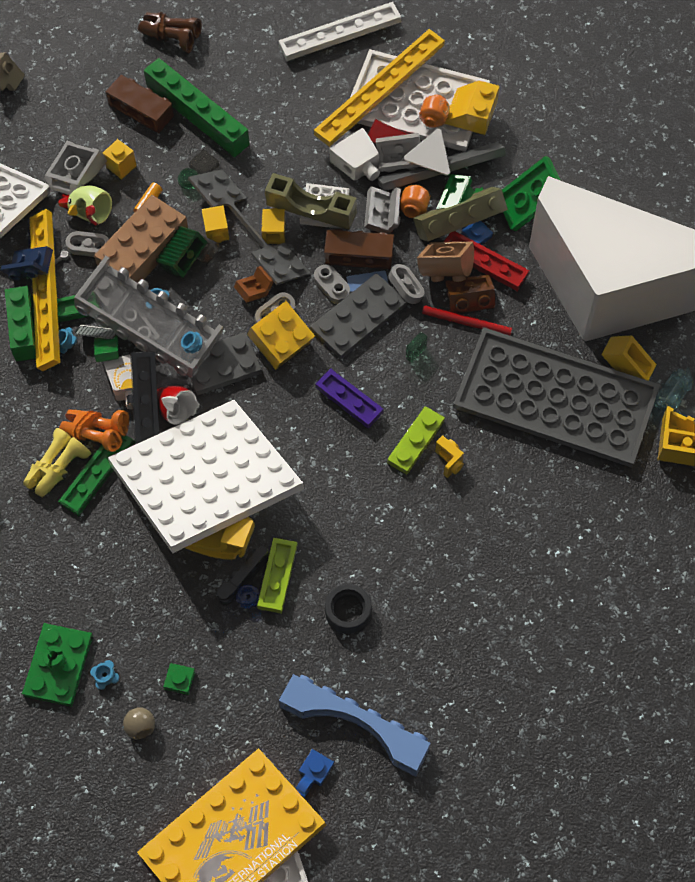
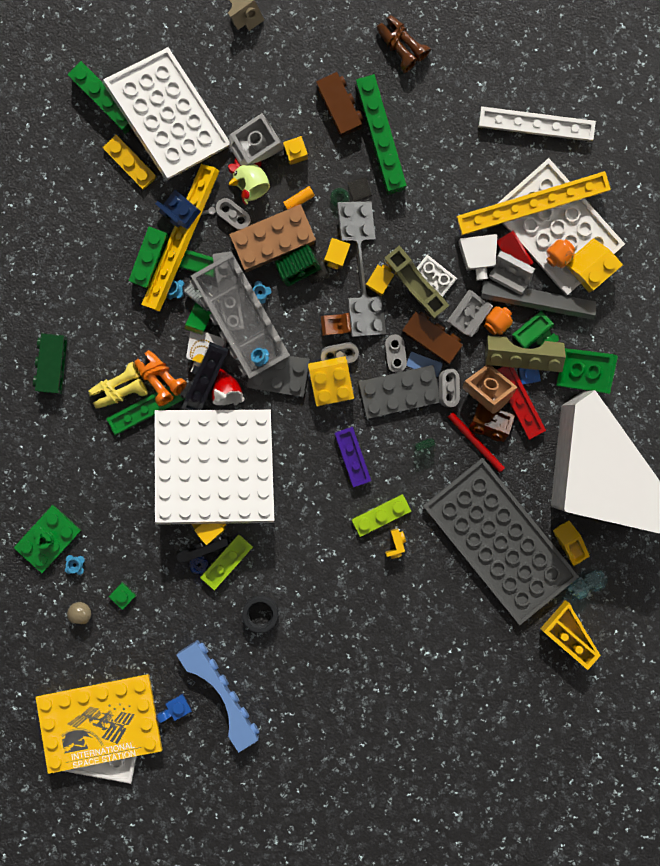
camera: 30 degrees right, 25 degrees up
(430, 154) = (533, 290): white piece -> none

